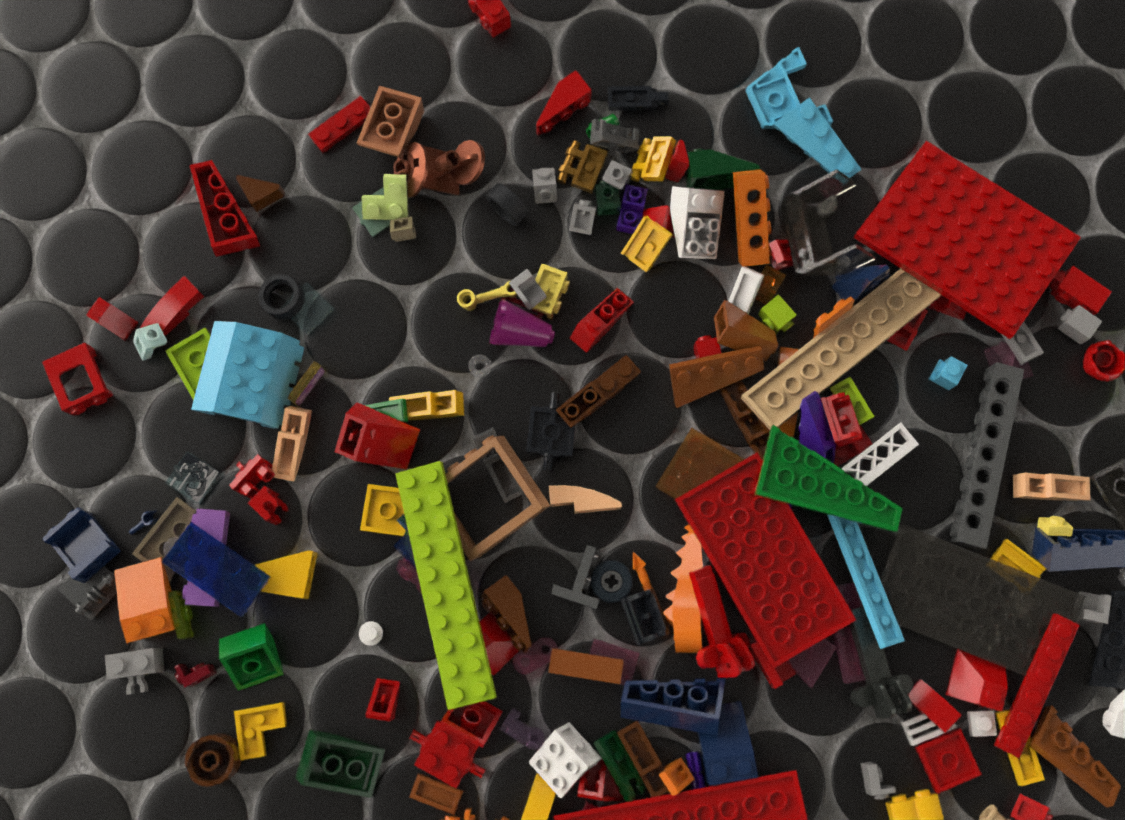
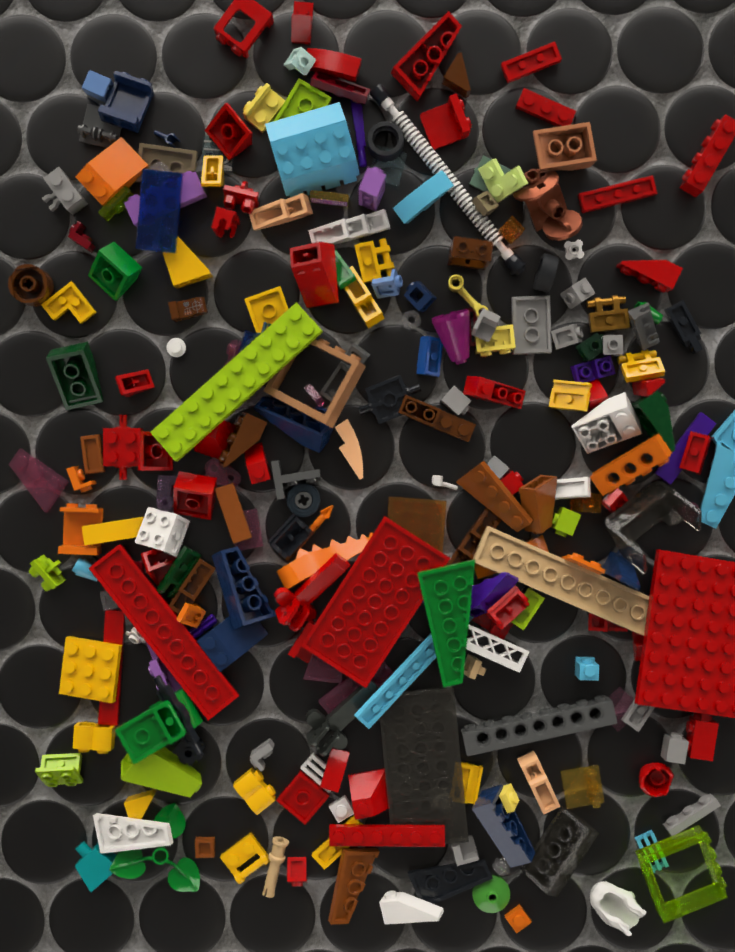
camera: 60 degrees right, 10 degrees up
(46, 567) = (97, 86): none -> medium blue panel
(173, 404) = (263, 107): none -> light yellow bracket
(177, 451) = (229, 132): none -> red slope
(200, 314) = (340, 87): none -> dark red plate
(207, 491) = (213, 171): none -> yellow slope
(236, 276) = (419, 143): none -> white hose
(255, 318) = (357, 114): none -> dark purple piece
(287, 114) = (531, 62): none -> red plate
(298, 226) = (446, 123): none -> red bracket
(322, 332) = (372, 188): none -> medium lavender brick
(336, 597) = (187, 308): none -> reddish brown leg
(350, 378) = (351, 228): none -> white slope
(360, 287) = (423, 197): none -> medium azure slope
(395, 378) = (368, 260): none -> yellow plate
(430, 371) = (388, 285): none -> medium blue bracket
(444, 217) = (511, 230): none -> clear orange bracket
(446, 261) = (474, 250): none -> reddish brown window
(452, 350) = (412, 295): none -> dark blue brick
(465, 98) = (617, 194): none -> red tile
(500, 173) = (570, 254): none -> white plate
(504, 508) = (314, 394): none -> clear pink tile
(525, 544) = (295, 423): none -> dark blue wedge
(528, 367) = (429, 356): none -> blue slope
(543, 700) = (194, 495): none -> red slope
(546, 610) = (257, 464): none -> red slope
(551, 245) = (531, 324): none -> light grey tile
(590, 363) = (456, 401): none -> light grey brick
(665, 426) = (438, 481): none -> white hand
(682, 354) = (498, 466): none -> slope
(759, 153) = (670, 470): none -> dark purple tile
(771, 150) = (695, 452): none -> red panel
(890, 490) = (473, 667): none -> tan tile
(1078, 443) = (582, 787): none -> clear yellow hinge

